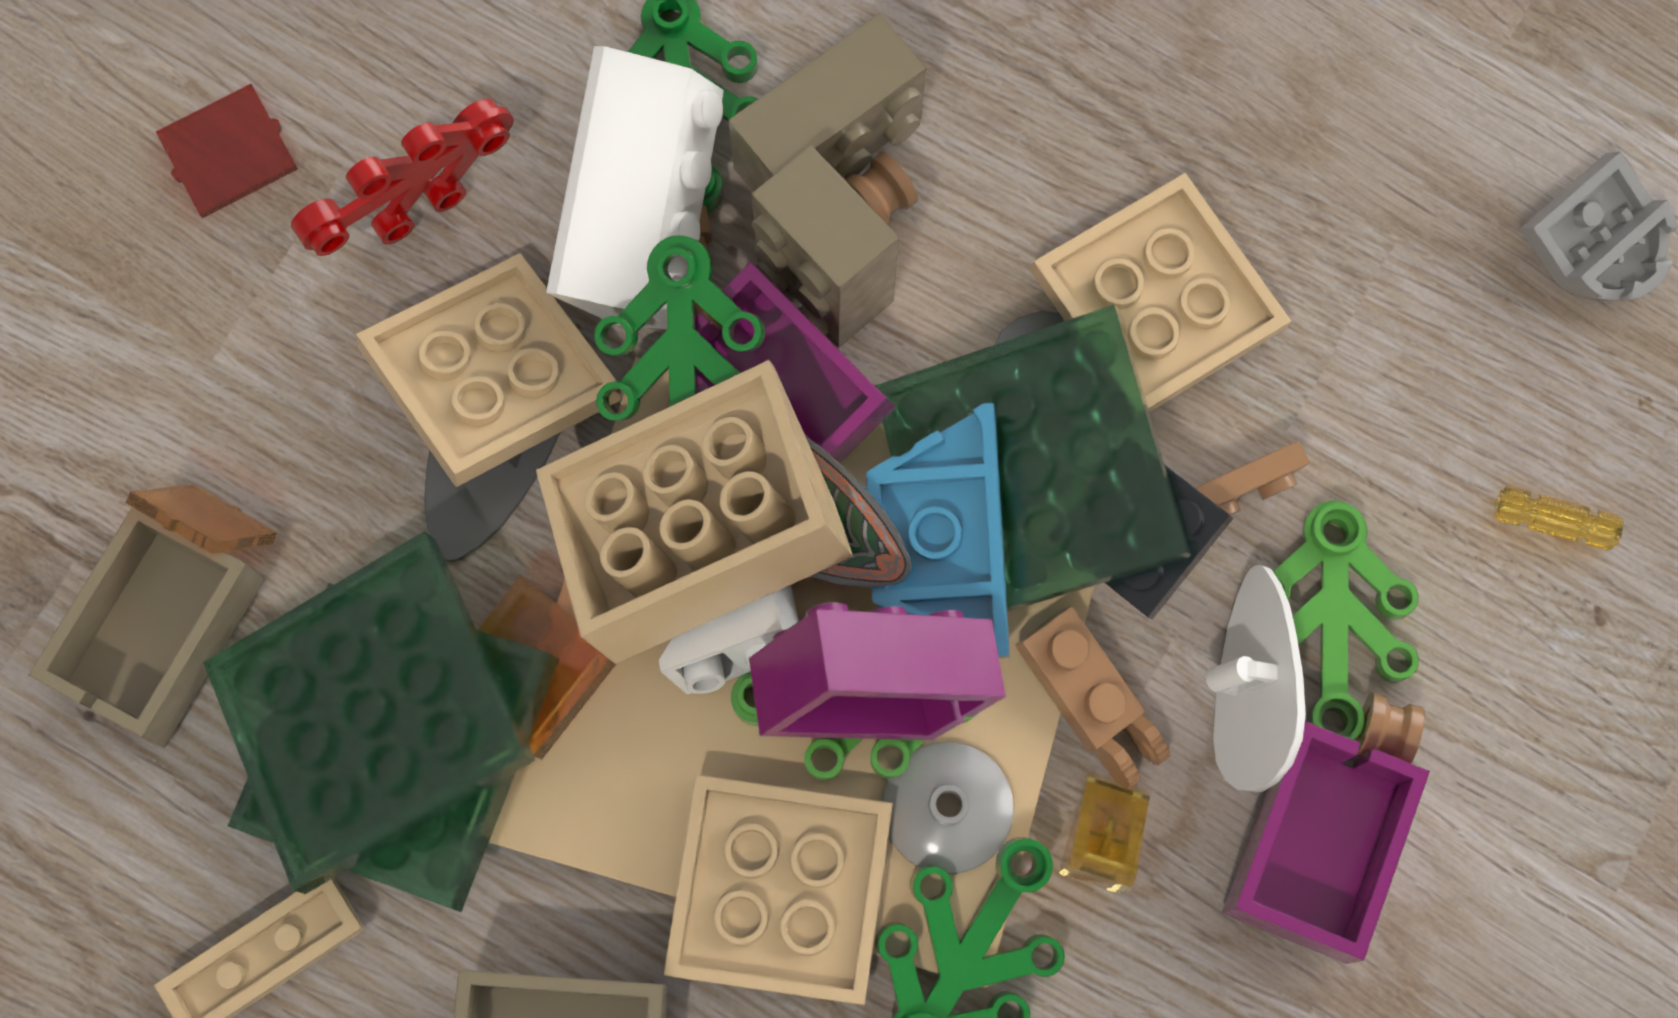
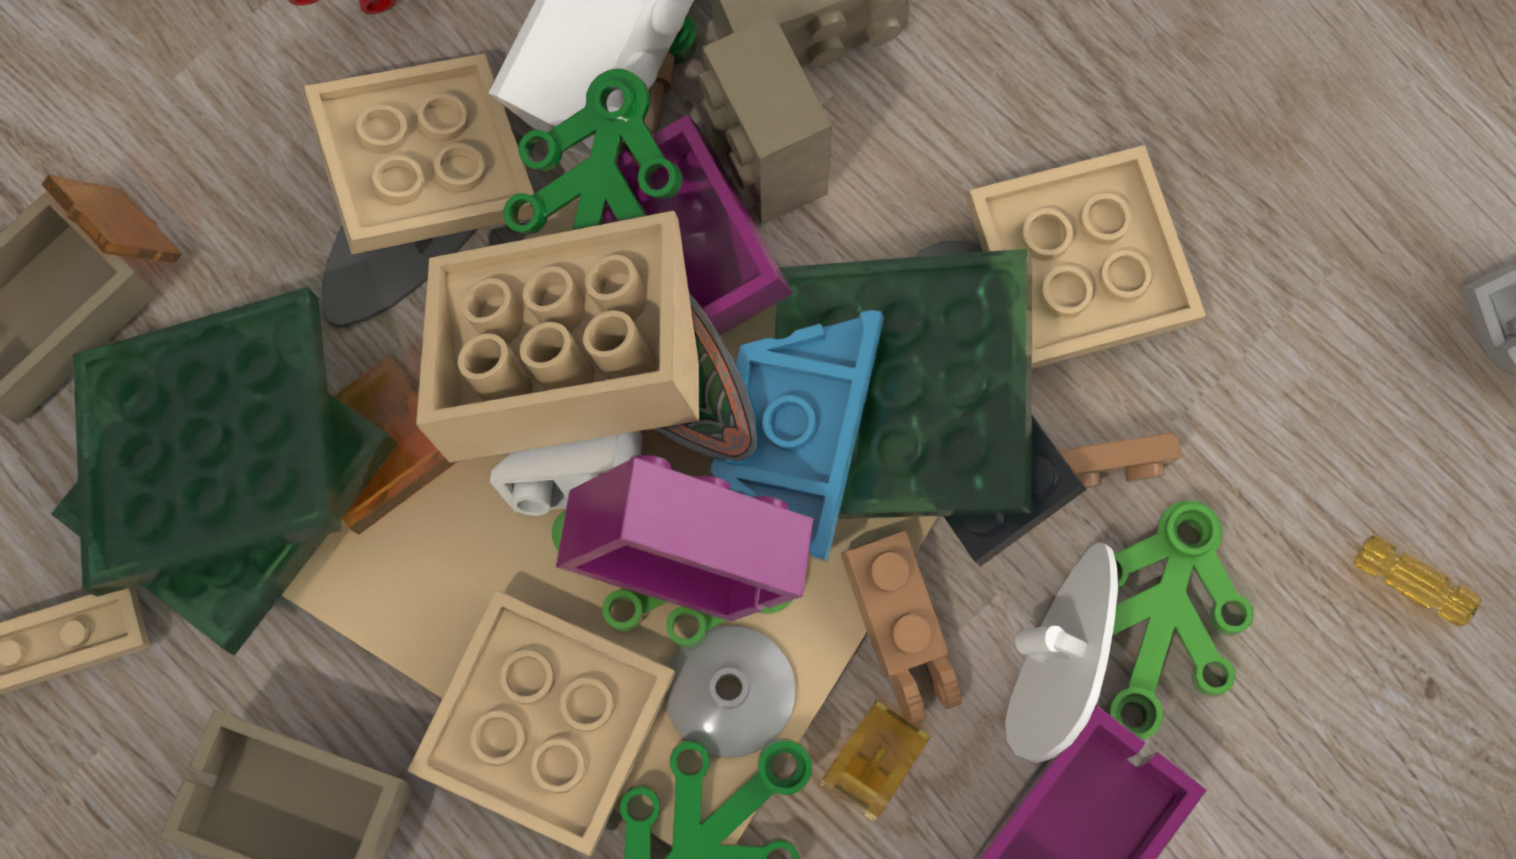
camera: 20 degrees right, 0 degrees up
(884, 186) = (843, 84): medium nougat wheel -> none
(1391, 728) = (1184, 739): medium nougat wheel -> none

